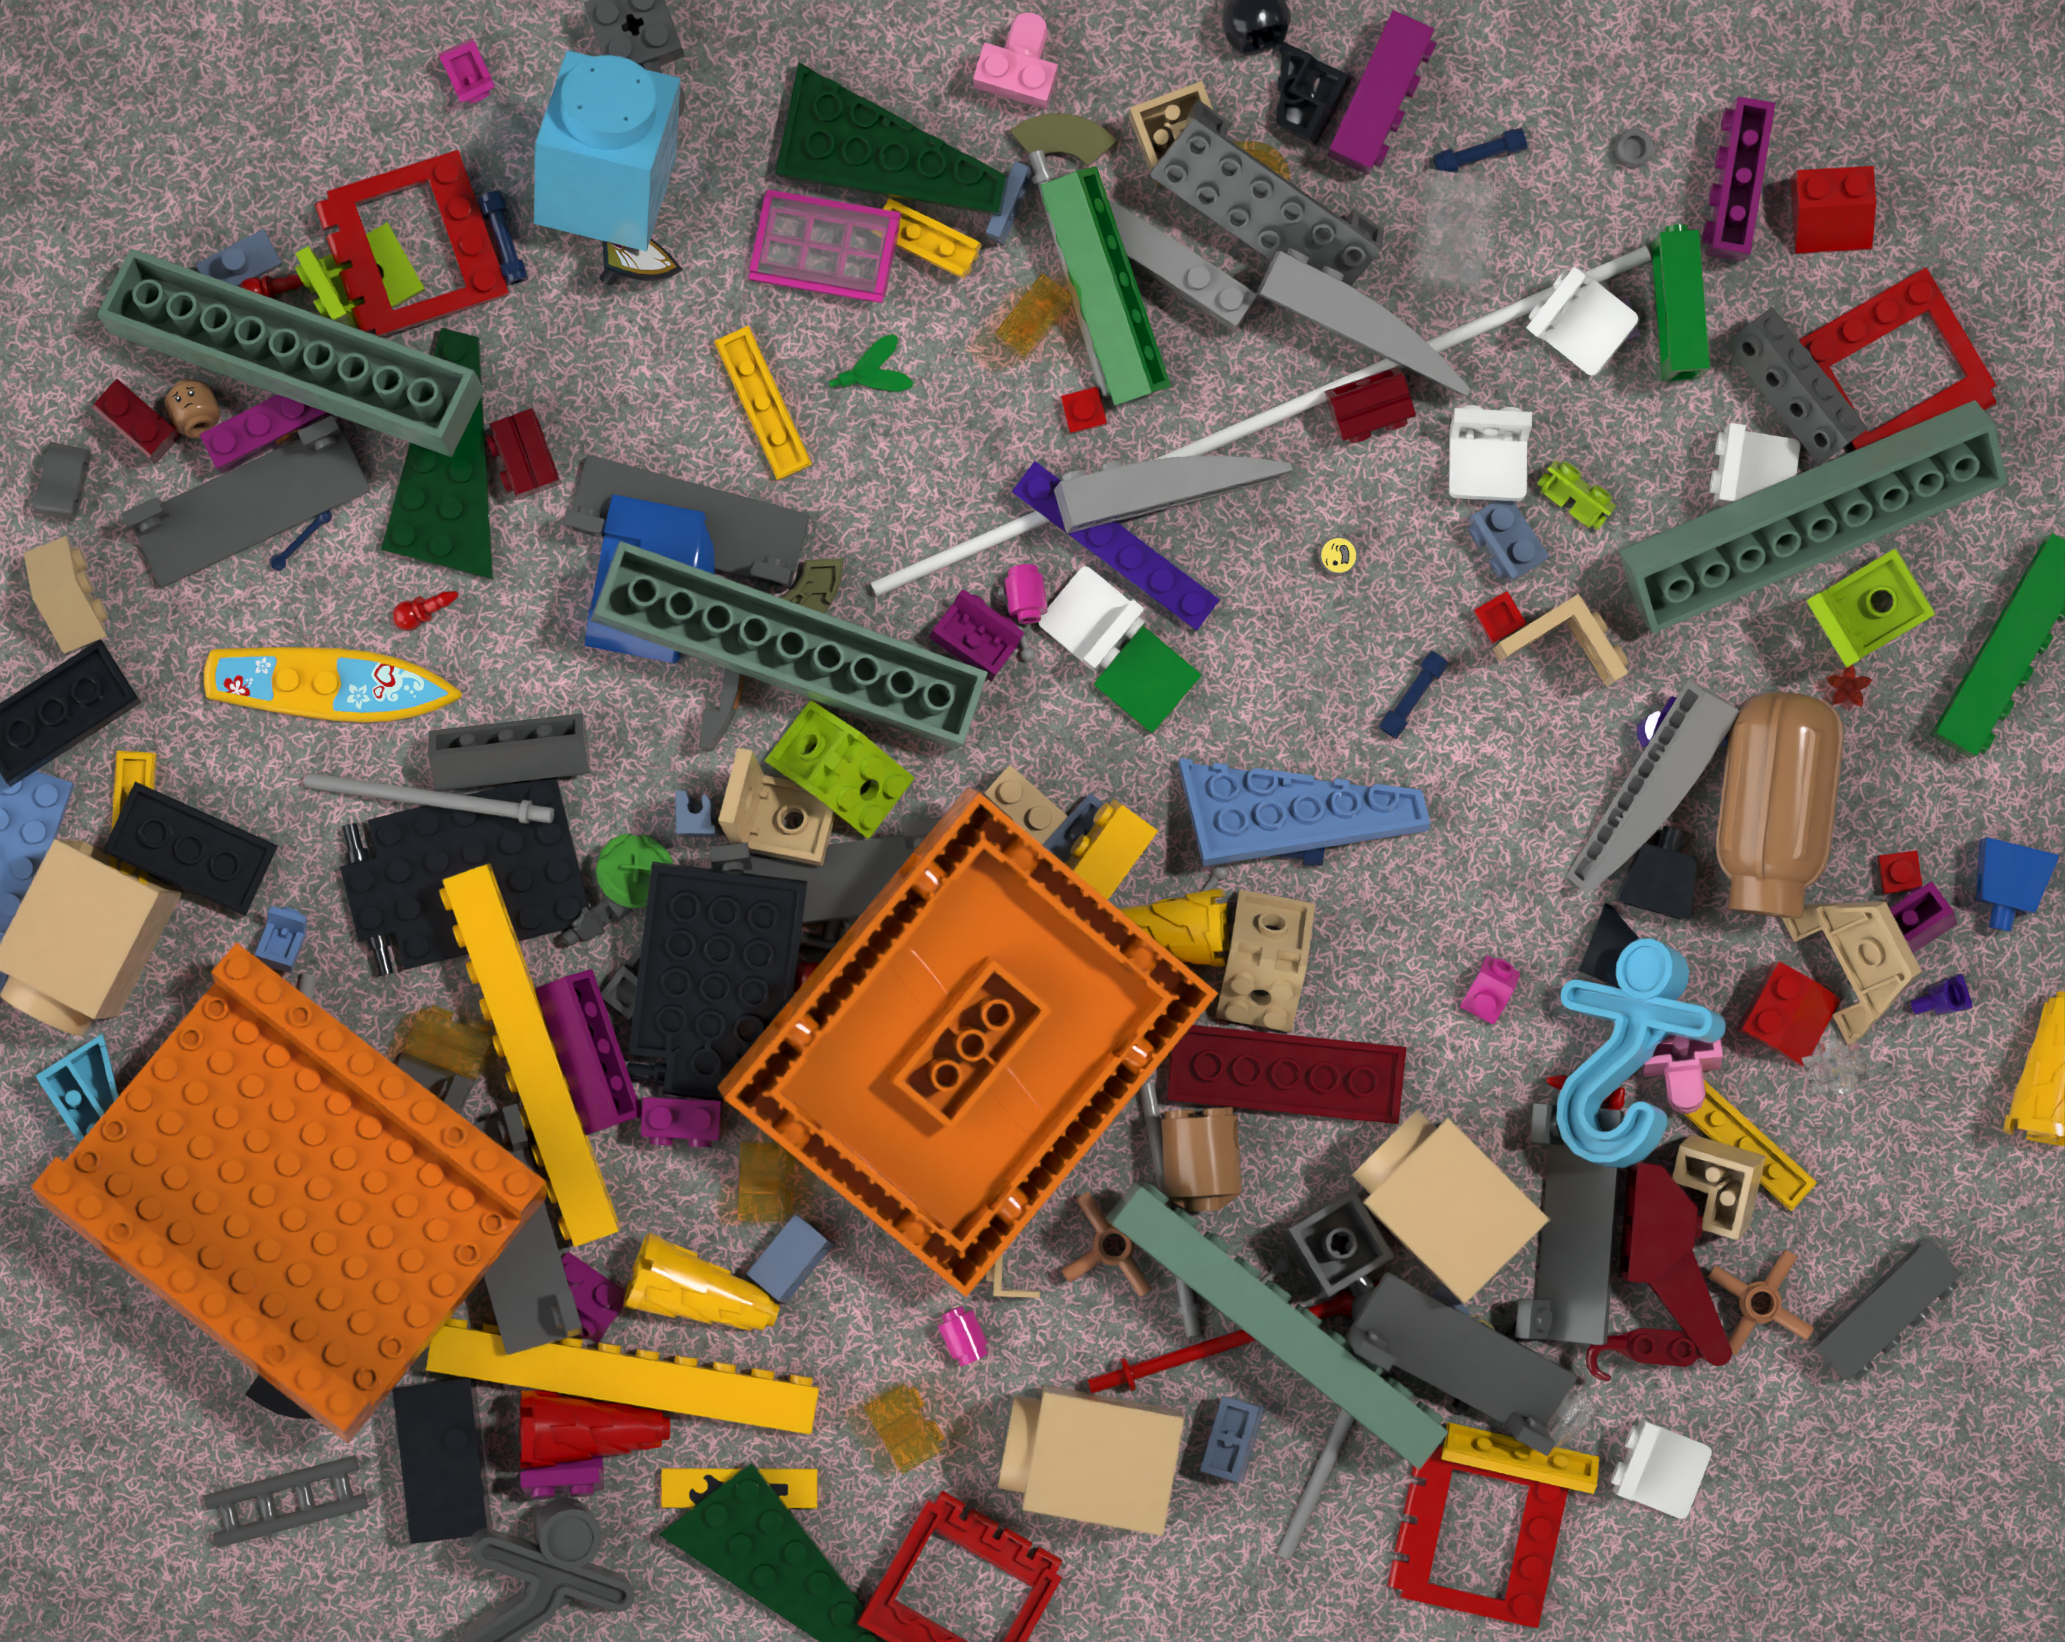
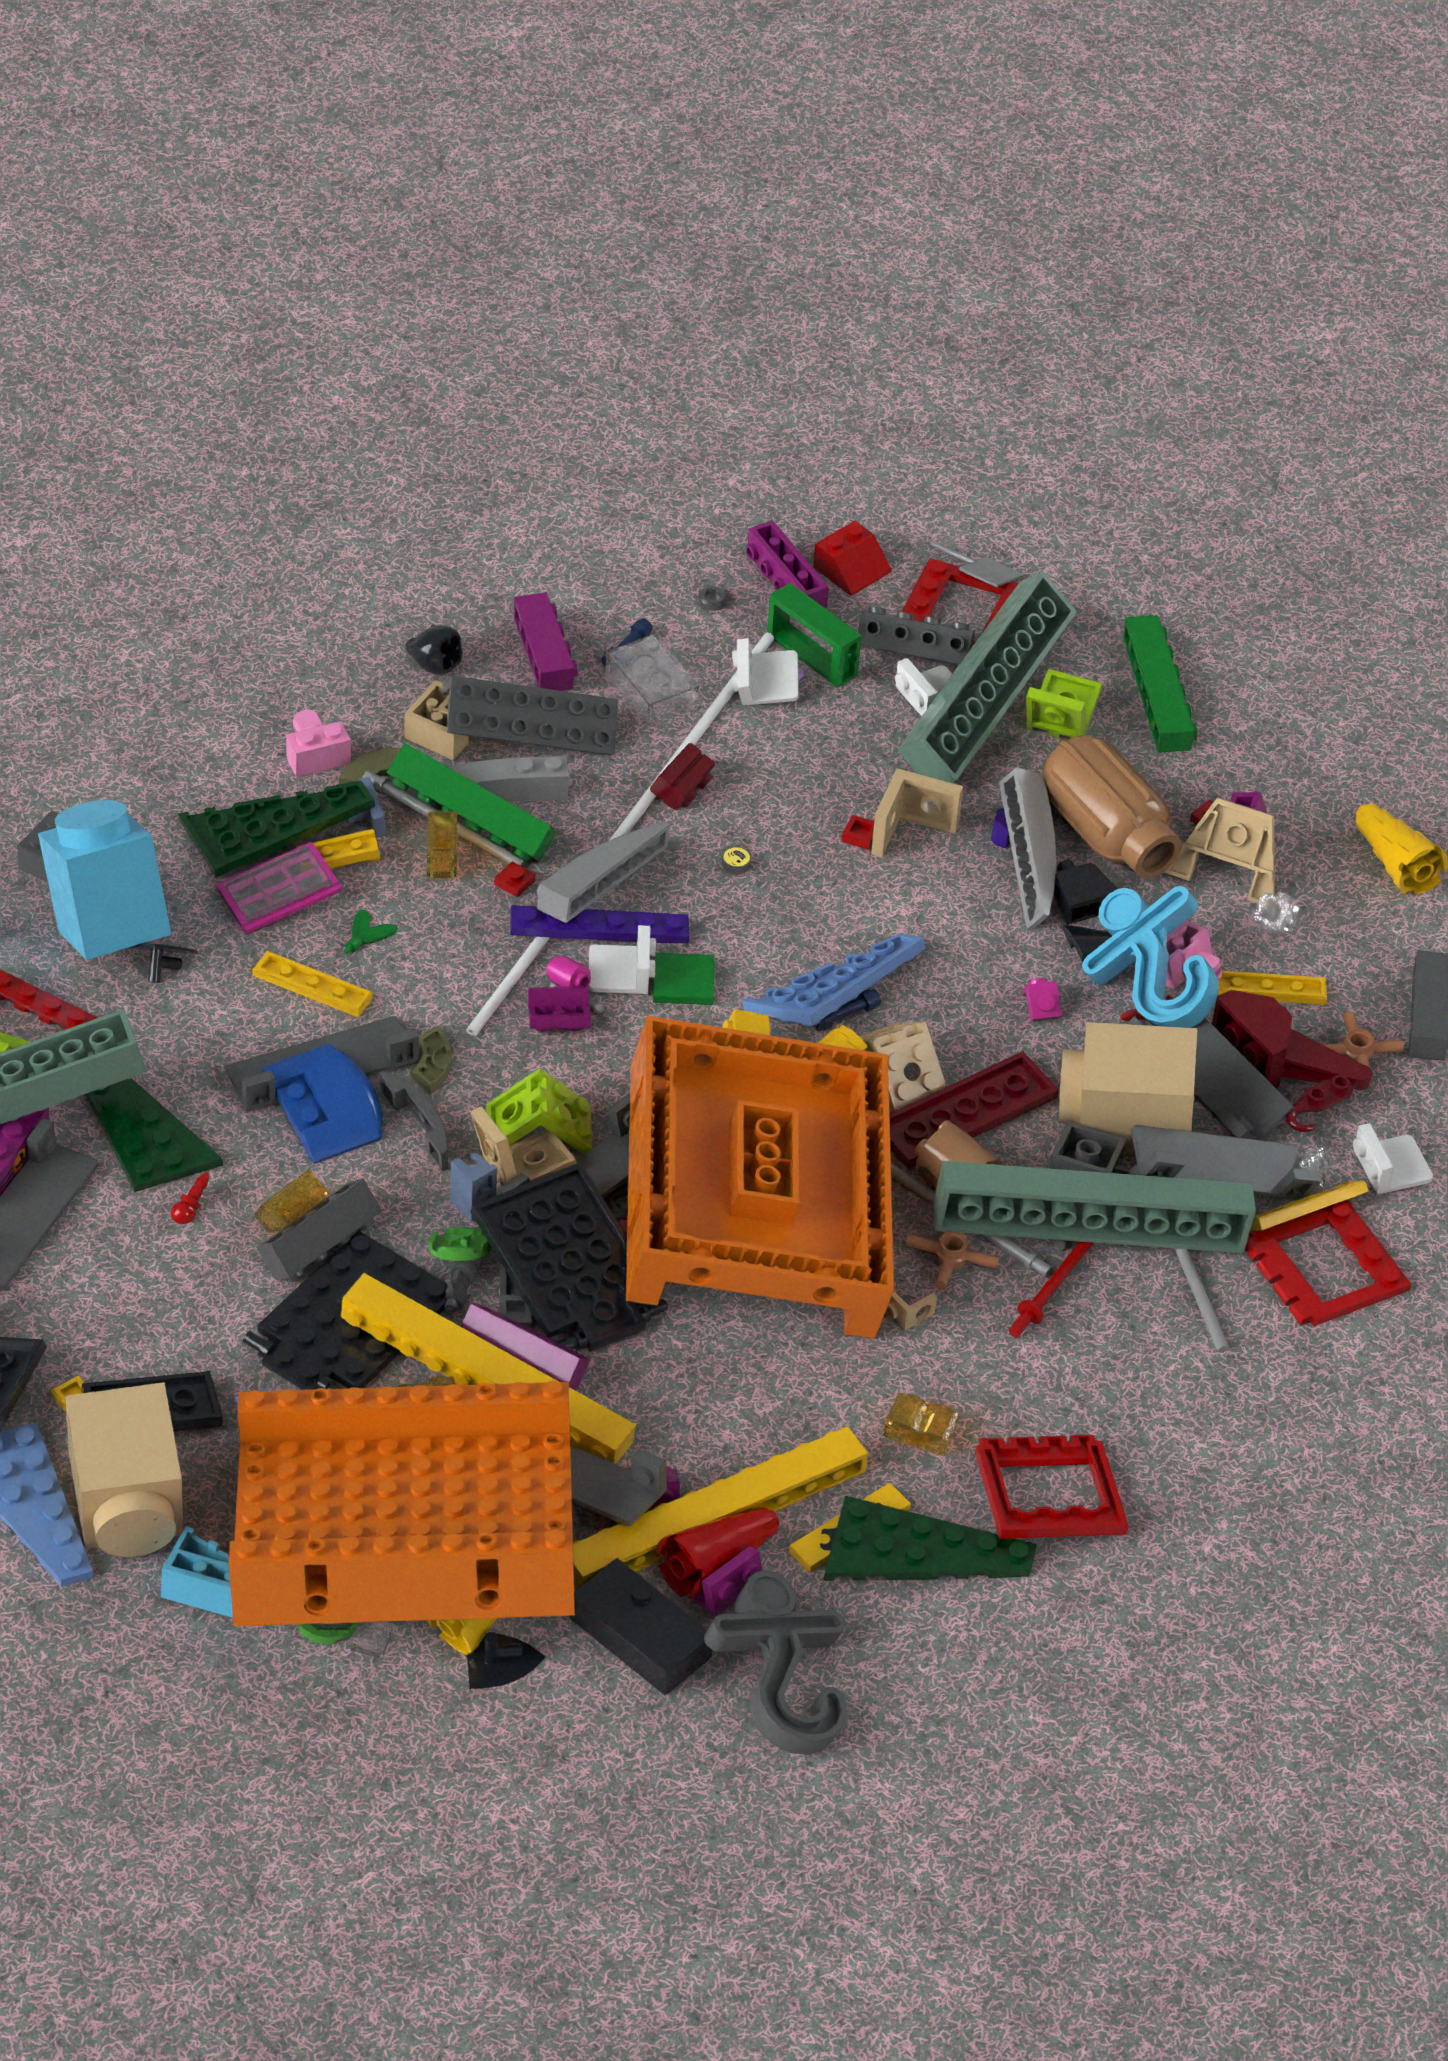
camera: 45 degrees left, 40 degrees down
(278, 561) = (70, 1233): dark blue hinge -> none
(308, 1510) = (556, 1746): dark grey bar -> none
(325, 683) = (160, 1277): piece -> none
(494, 208) = (49, 984): dark blue bar -> none
(506, 698) = (291, 1202): none -> clear yellow brick
(523, 811) = (359, 1246): light grey bar -> none
(524, 454) = (184, 1085): dark red brick -> none
(678, 1283) = (707, 1428): yellow cone -> none
(681, 1118) = (617, 1349): magenta brick -> none
(764, 1182) = (701, 1352): clear yellow brick -> none
(789, 646) = (447, 1060): sand green brick -> none
(790, 1258) = (760, 1381): sand blue hinge -> none
(963, 1335) = (909, 1354): dark pink brick -> none
(1093, 1458) = (1058, 1341): tan container -> none
(1232, 1439) = (1129, 1299): sand blue hinge -> none
(1300, 107) = (488, 668): black slope -> none
(1351, 314) = (637, 736): light grey slope -> none
(1432, 667) = (850, 911): dark blue bar -> none
(1489, 453) = (770, 759): white bracket -> none
(1508, 539) = (825, 798): sand blue bracket -> none
(1589, 500) = (831, 753): lime hinge -> none
(1729, 1178) = (1281, 985): tan brick -> none
(1788, 1012) = (1221, 908): red slope -> none
(1944, 997) = (1301, 853): dark purple piece -> none
(1973, 333) = (984, 568): none -> light grey piece
(2011, 879) = (1275, 777): blue torso -> none

